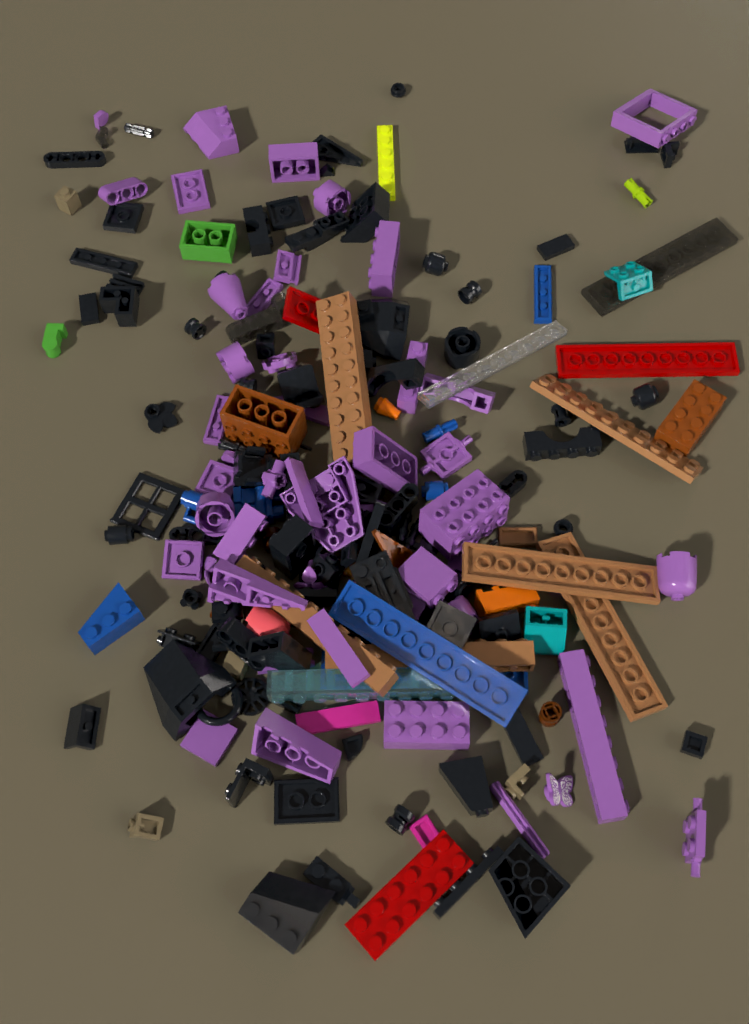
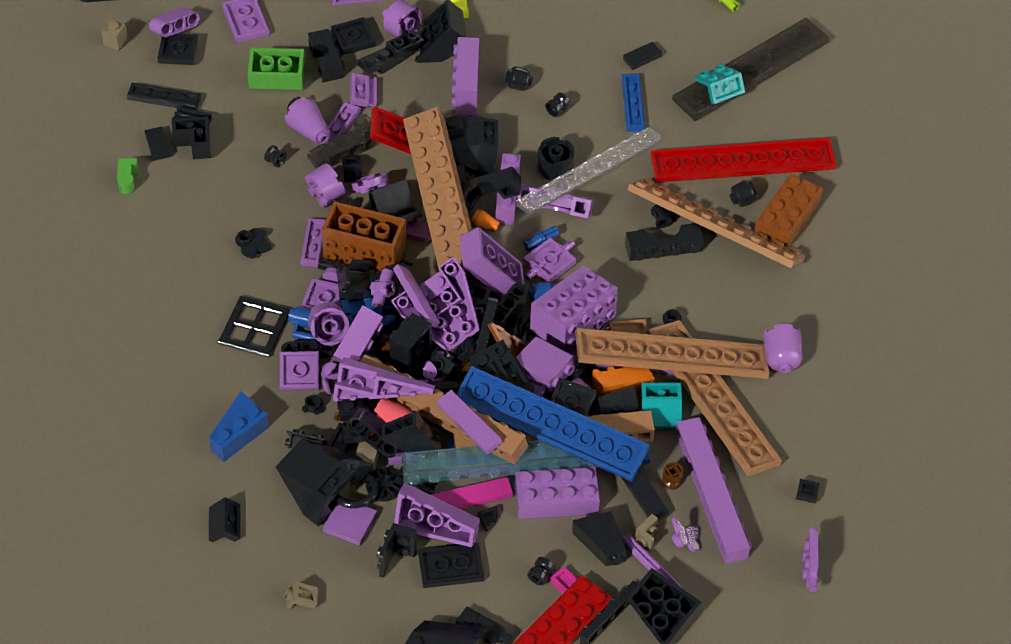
camera: 10 degrees left, 10 degrees down
(119, 534) = (231, 352): black brick -> none
(509, 482) = (621, 284): black beam -> none

